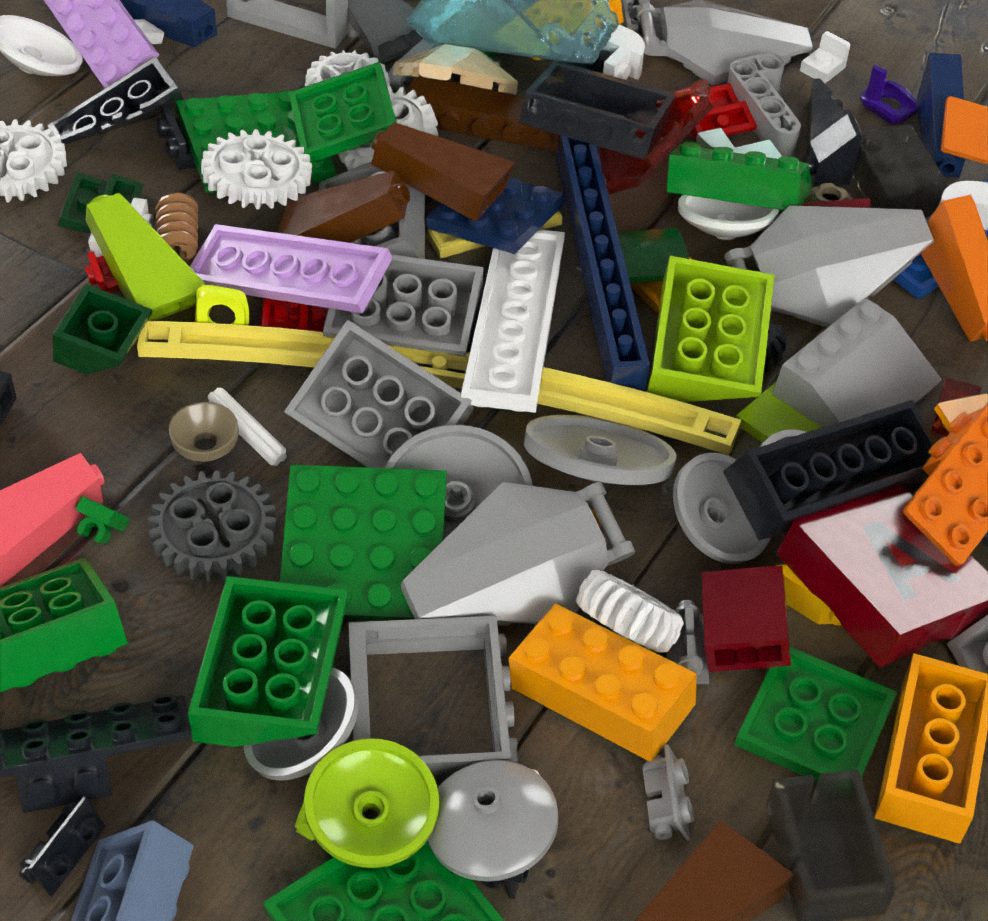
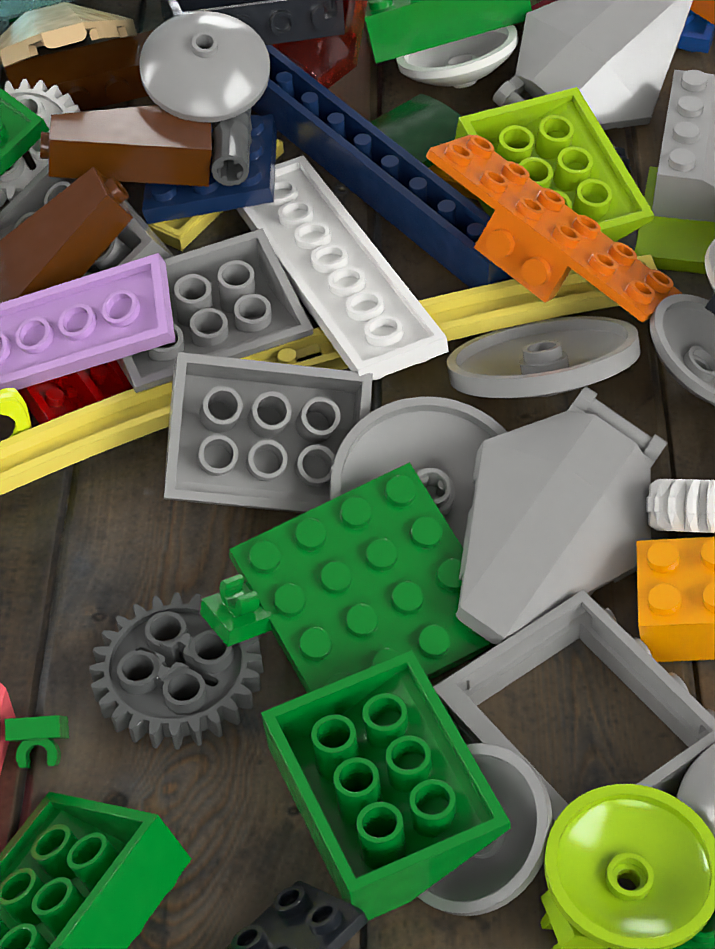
camera: 25 degrees left, 0 degrees up
(200, 422) = (80, 556): dark tan piece -> none
(251, 429) = (120, 540): white axle -> none
(268, 507) = (235, 612): none -> green tile
(515, 192) = (231, 149): none -> dark grey axle
(520, 150) = (204, 82): none -> light grey dish
(662, 366) = (541, 237): none -> orange bracket

